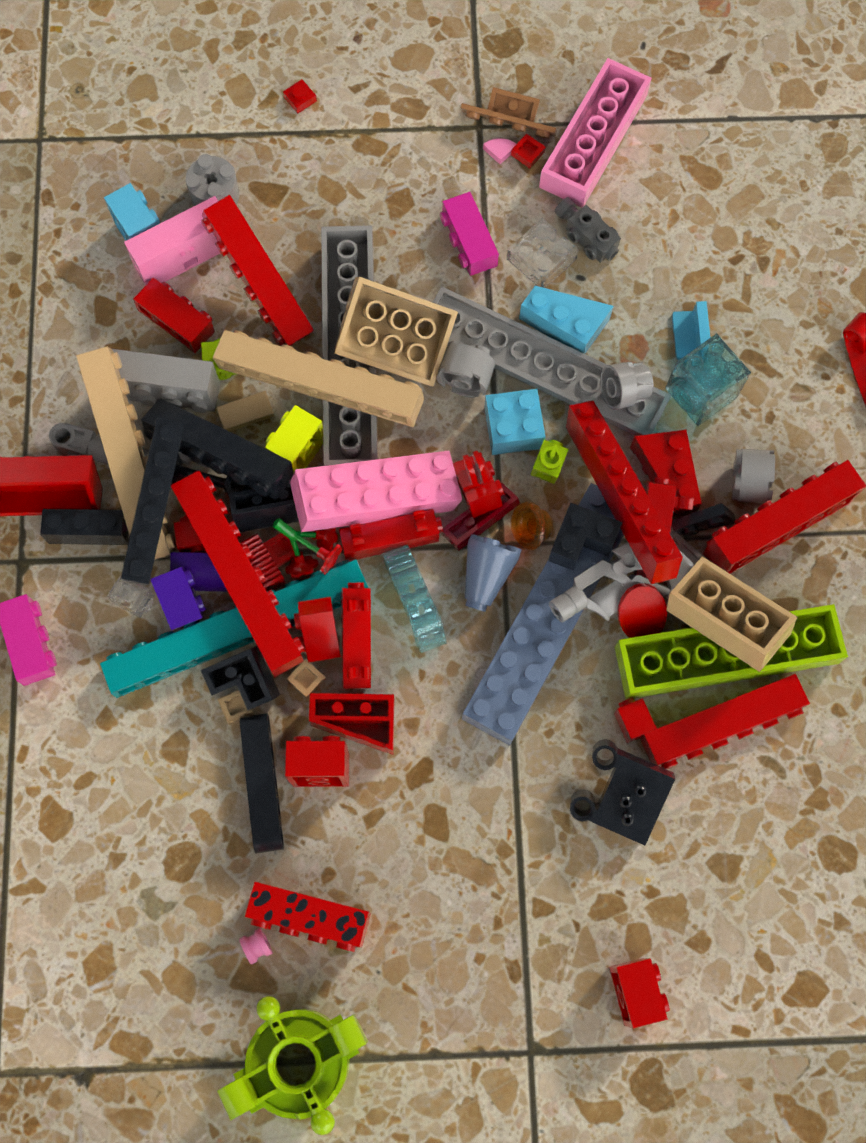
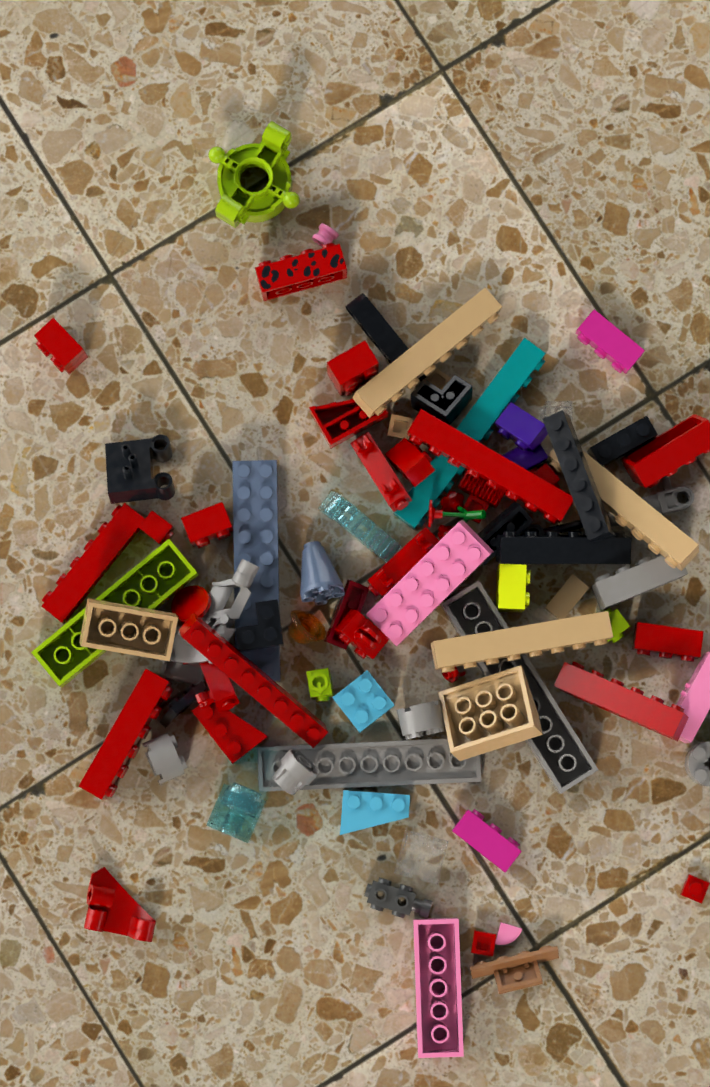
camera: 150 degrees right, 10 degrees up
(225, 735) = (427, 352): none -> tan brick
(578, 686) = (207, 525): none -> red brick
(690, 329) = (271, 856): medium azure panel -> none

